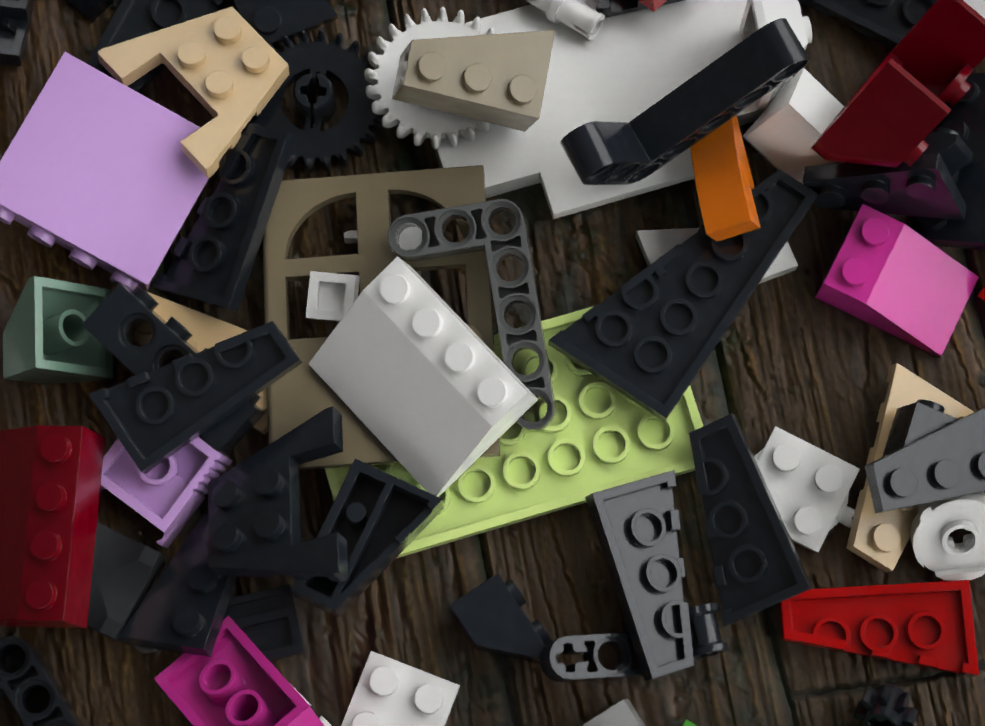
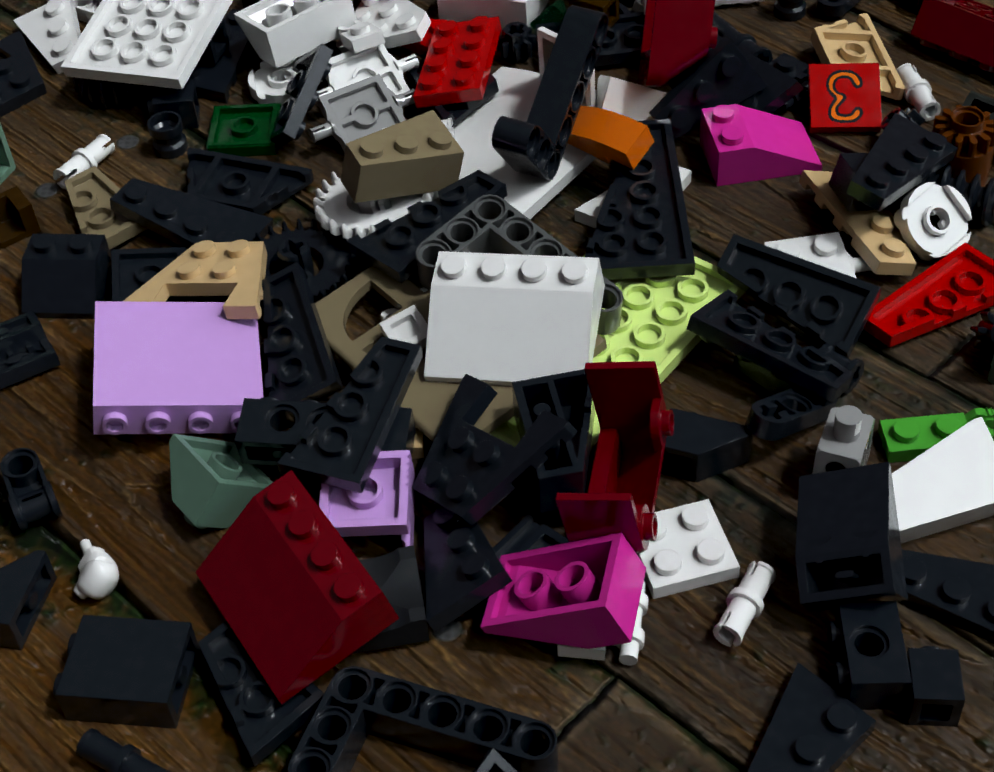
camera: 30 degrees left, 30 degrees down
(379, 630) = (626, 456): none -> dark red windscreen
(430, 175) = (395, 243): none -> black wing

